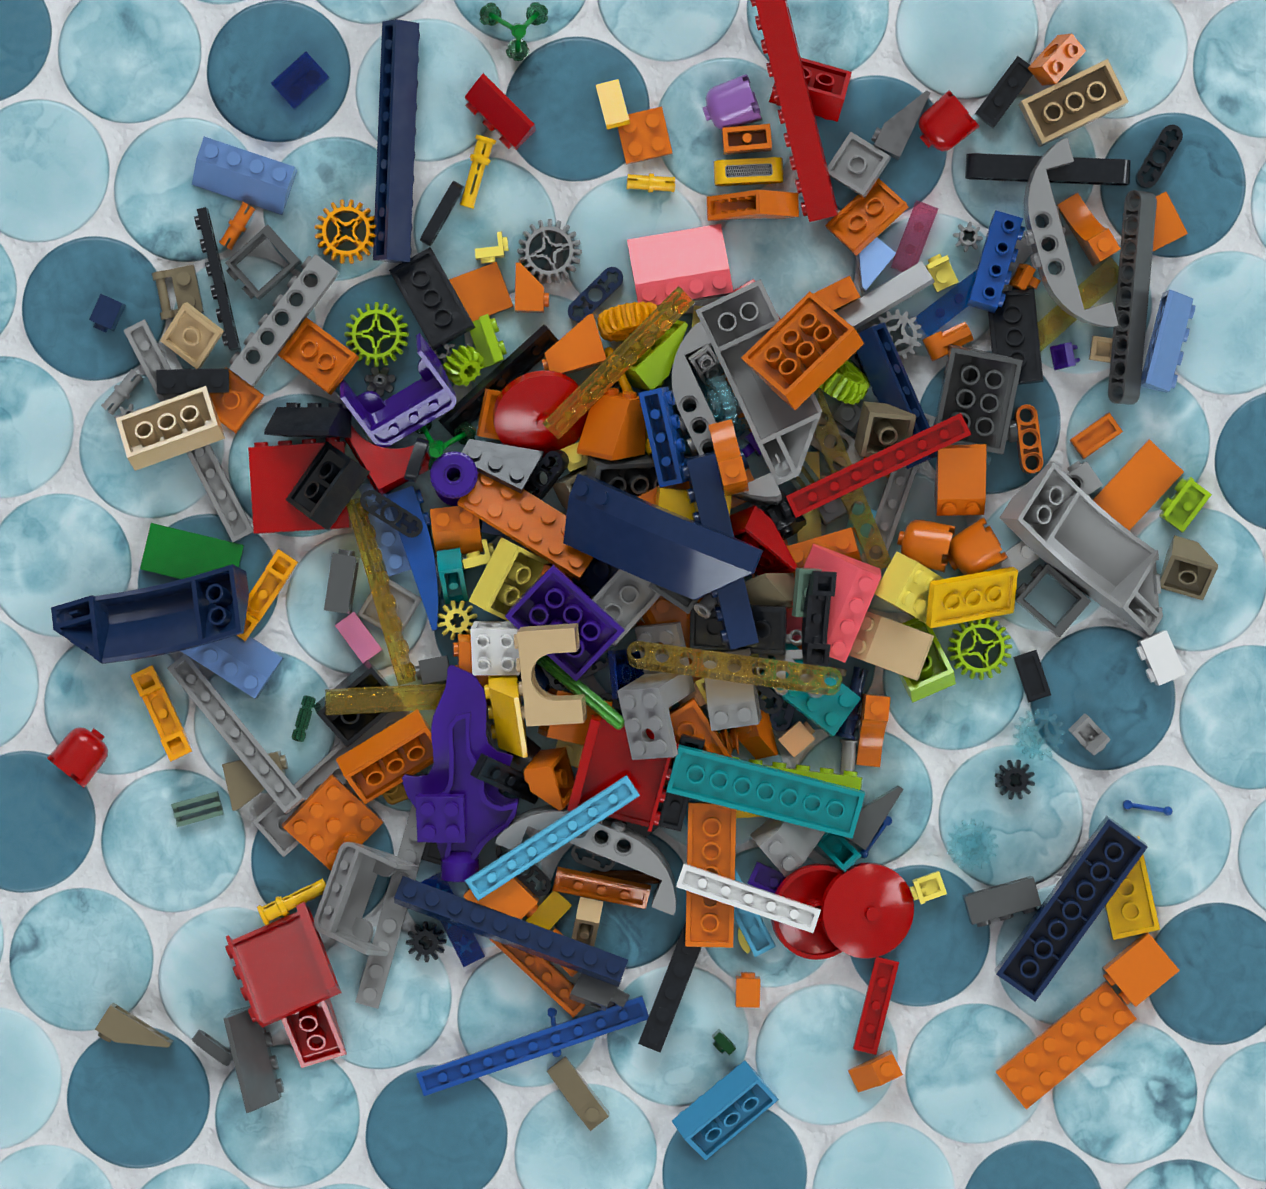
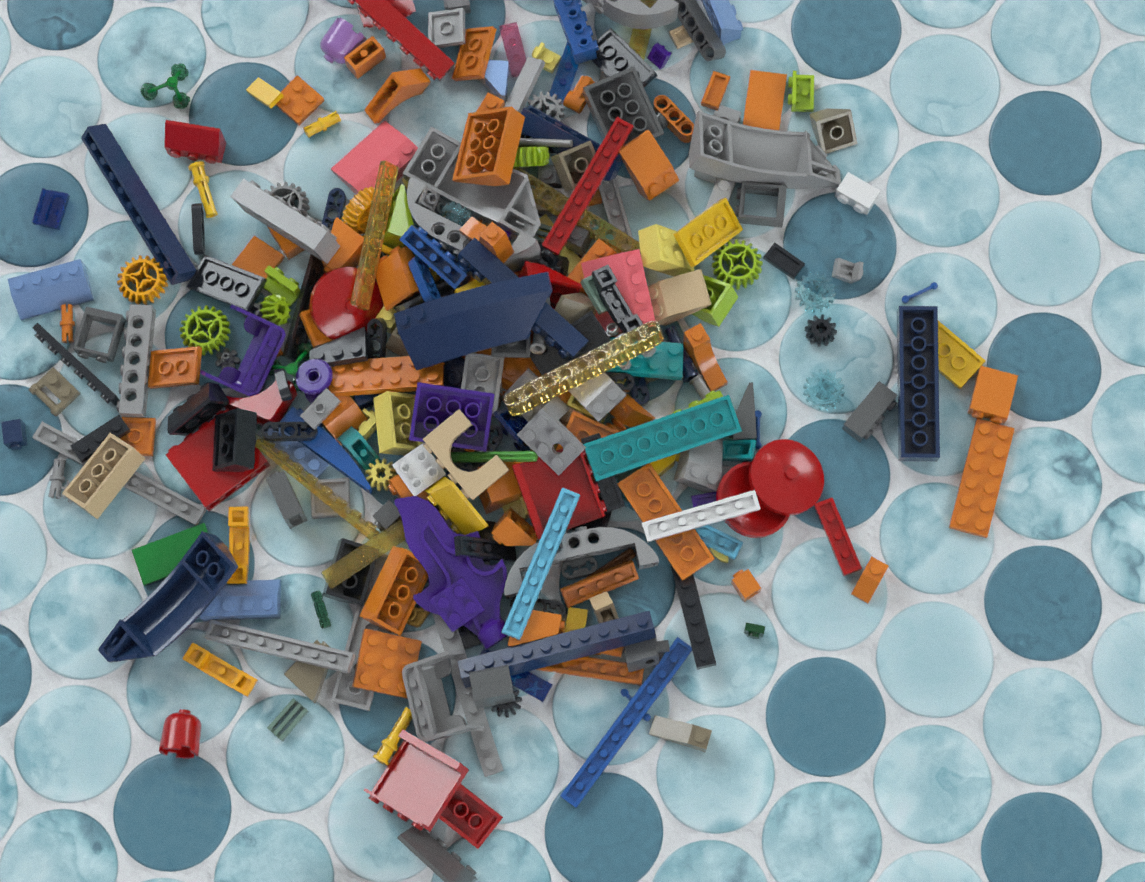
camera: 25 degrees left, 15 degrees down
(192, 335) = (81, 410): tan plate -> none
(213, 1047) = (406, 876): dark grey beam -> none
(358, 637) = (322, 531): bright pink tile -> none
(420, 925) = (492, 686): none -> dark grey slope
(438, 514) = (320, 408): none -> light grey plate
(488, 254) = (247, 231): light yellow bracket -> none
(533, 281) = (286, 220): none -> light grey brick
(632, 467) = (423, 279): none -> blue beam
(724, 1110) = (788, 675): dark azure slope -> none
(748, 171) = (373, 80): yellow beam -> none
(797, 737) = (660, 399): light nougat brick -> none
(872, 381) = (545, 142): none -> light grey bar
(927, 543) = (655, 213): orange cylinder -> none
(928, 887) = (815, 436): light yellow bracket -> none
(968, 229) = (544, 29): light grey gear -> none
(975, 549) = (689, 202): orange cylinder -> none
(1024, 277) = (600, 26): orange tile -> none

